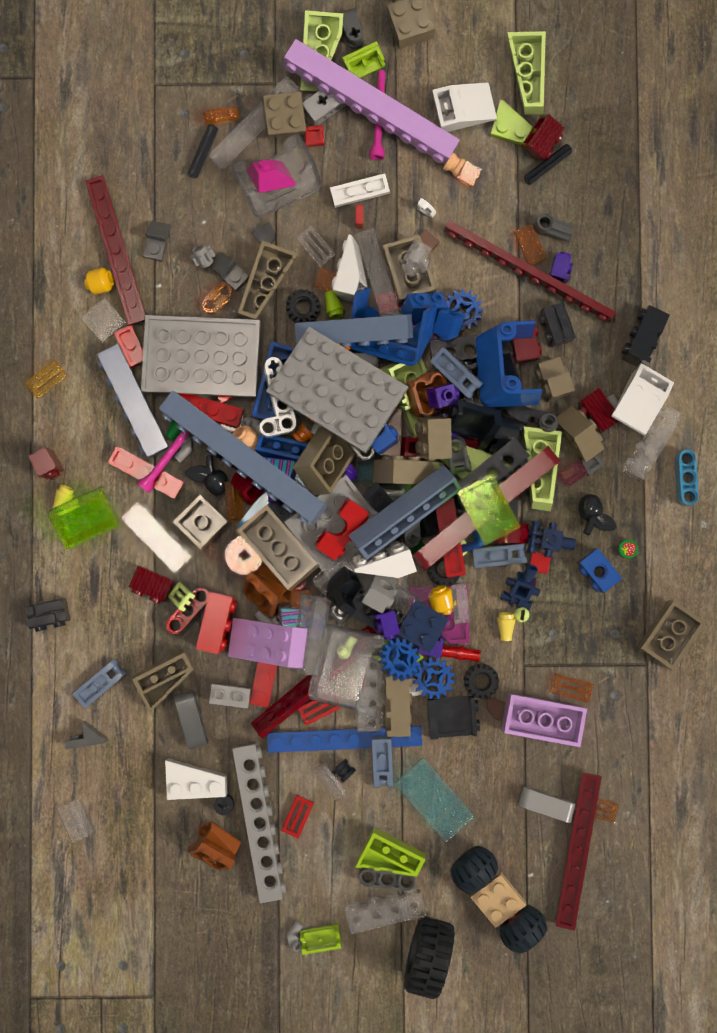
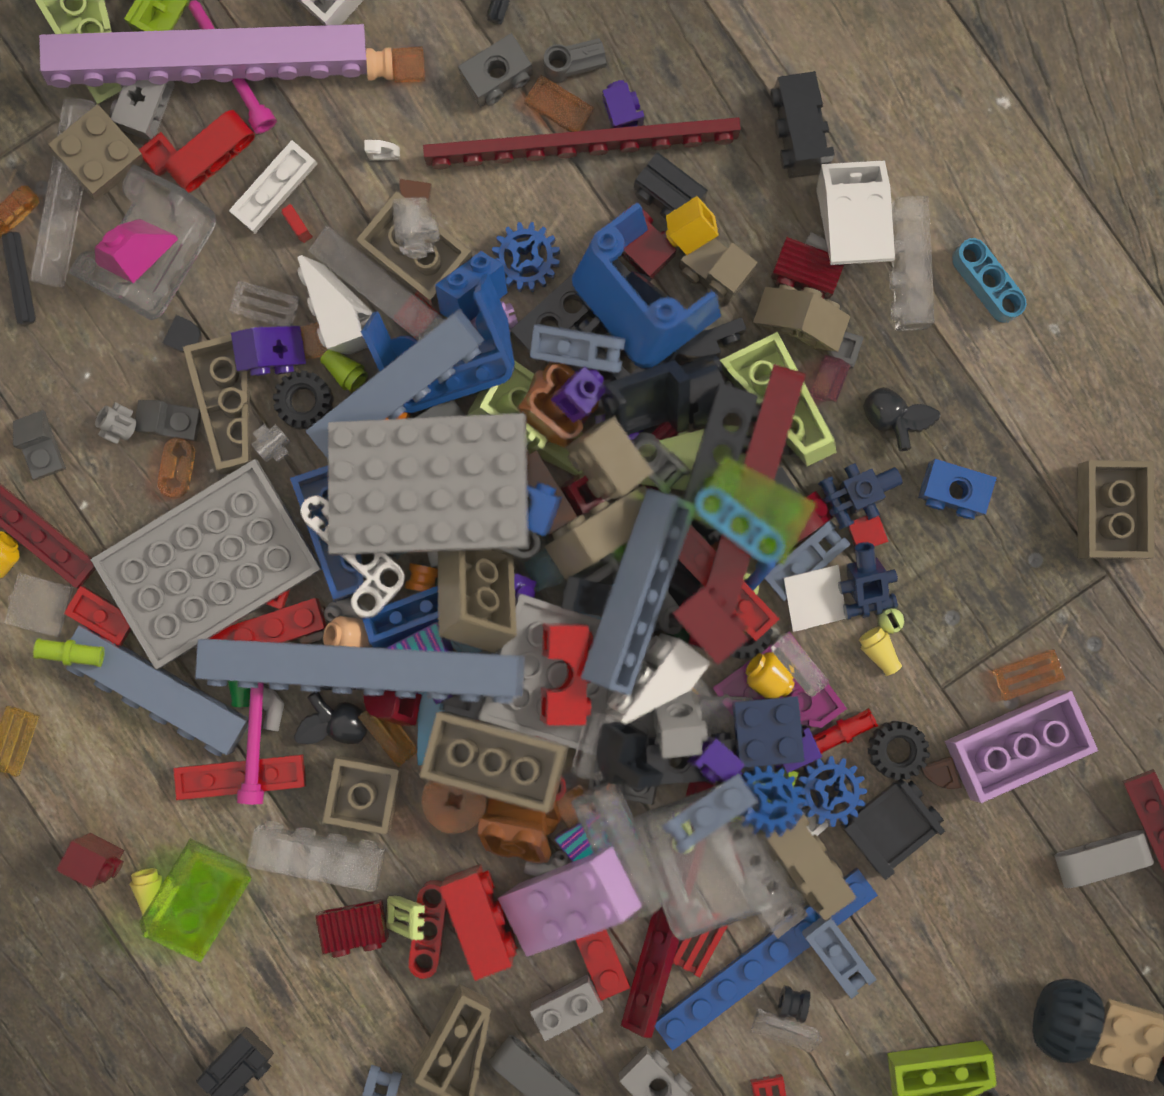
camera: 30 degrees left, 0 degrees up
(104, 354) = (68, 652): none -> lime pin
(272, 317) = (271, 443): none -> clear gear
(303, 269) = (268, 348): none -> dark purple brick
(340, 151) = (209, 151): none -> red beam
(367, 644) = (711, 812): none -> sand blue plate
(429, 552) = (711, 624): none -> dark red brick
(434, 799) = (945, 958): clear light blue plate -> none
(448, 324) = (520, 289): blue brick -> none
(476, 500) = (755, 531): none -> dark azure beam
(491, 577) = (814, 598): none -> white sticker
(519, 201) = (504, 55): none -> dark grey brick
(548, 418) = (748, 324): dark grey plate -> none
(554, 350) = (691, 226): none -> yellow brick
(628, 549) = (975, 432): tile -> none

